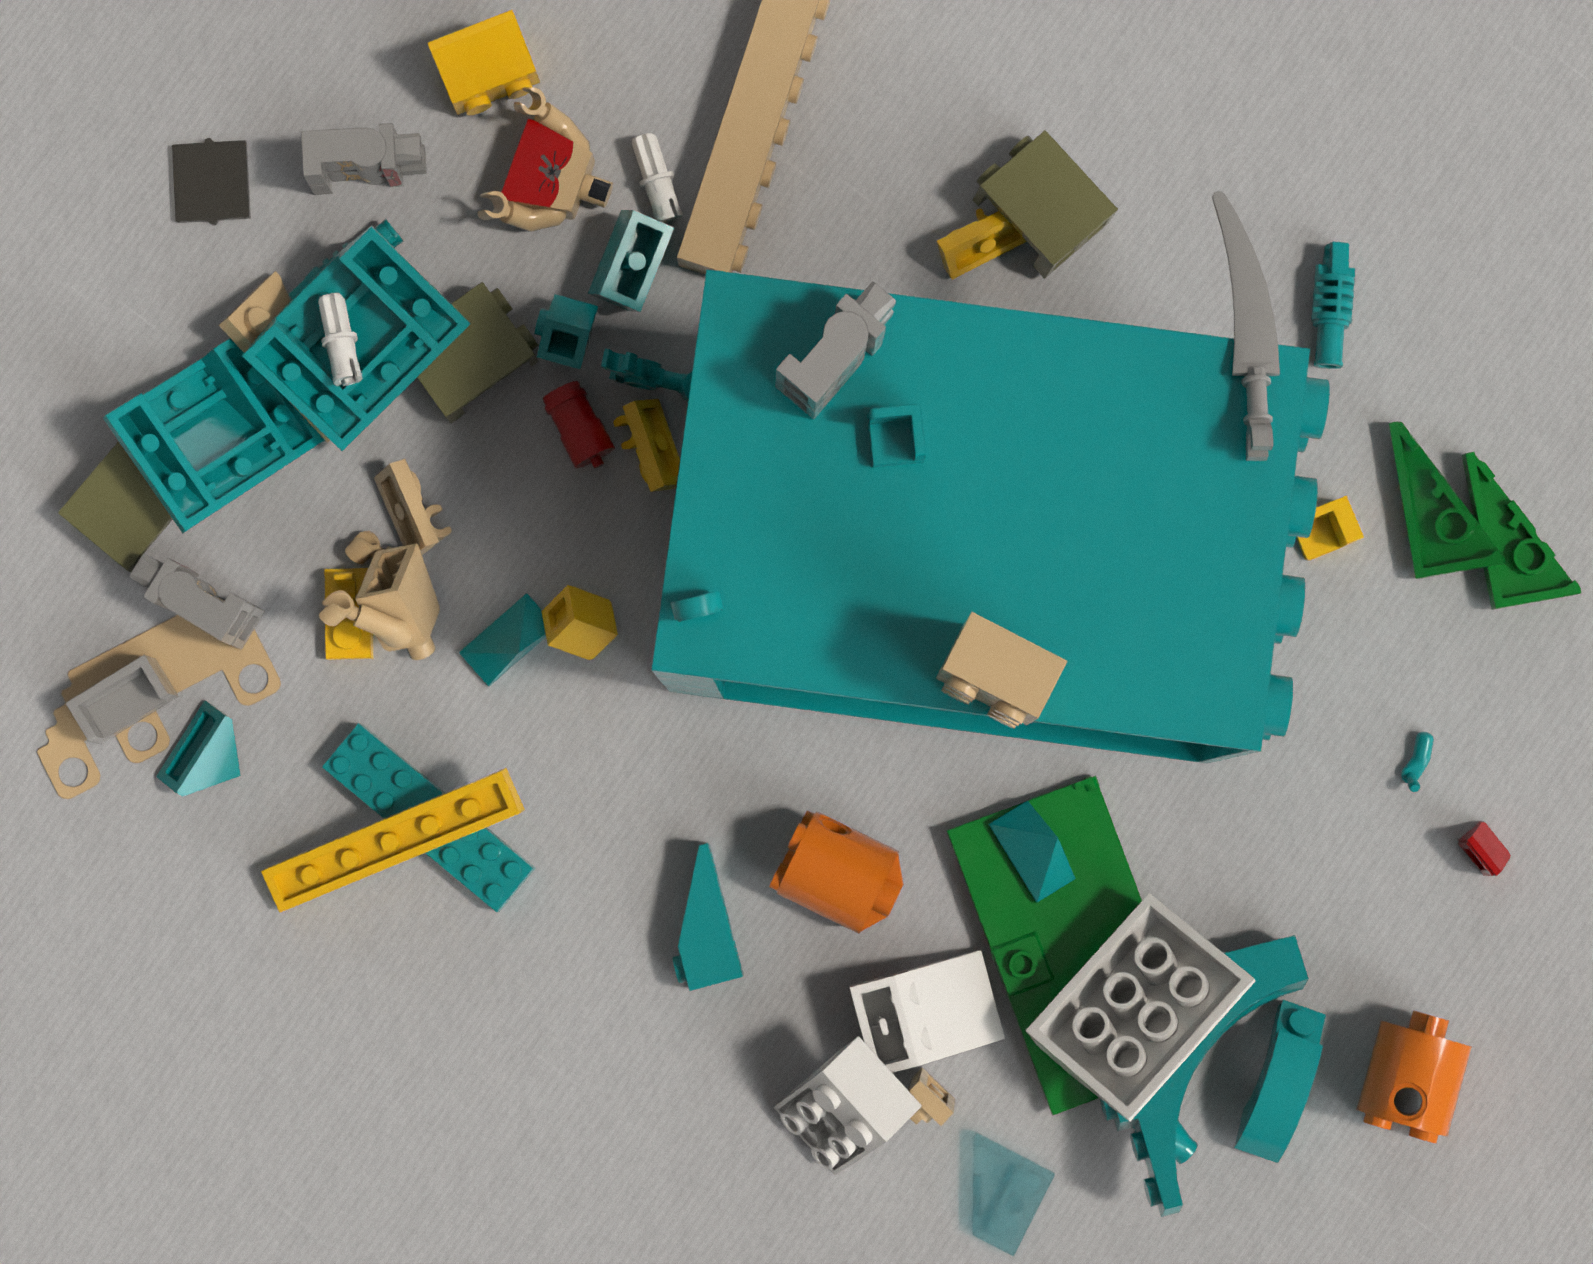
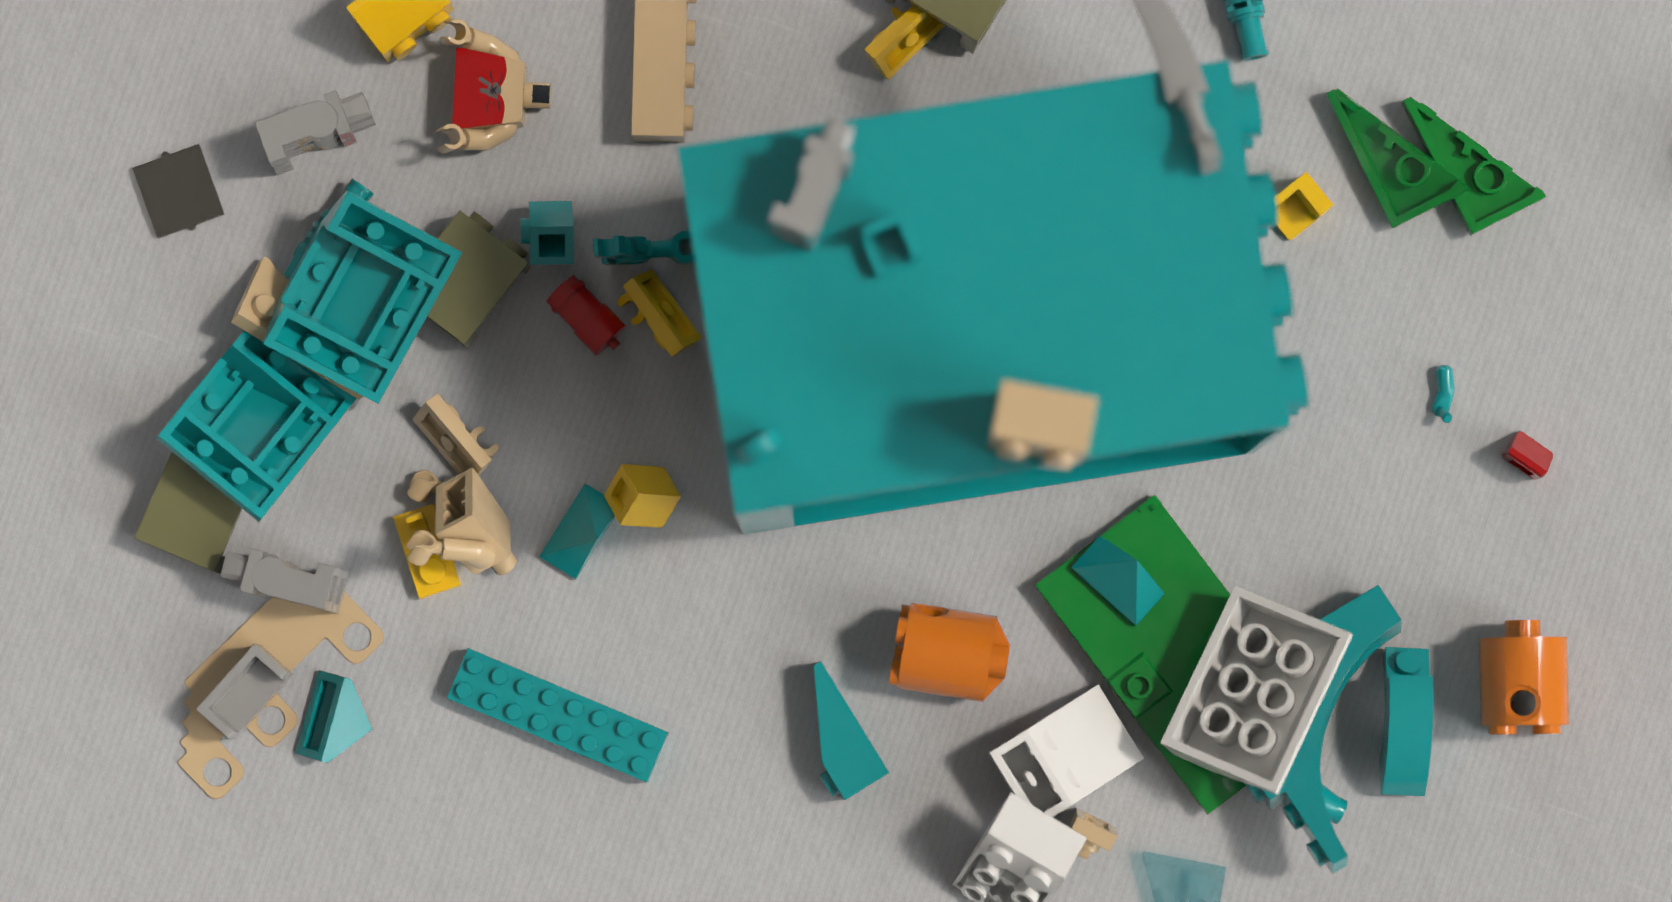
camera: 20 degrees left, 0 degrees up
(339, 340) = (347, 303): white axle -> none
(393, 840) = (533, 744): yellow plate -> none
(630, 260) = (589, 150): teal brick -> none
(656, 178) = (589, 67): white axle -> none

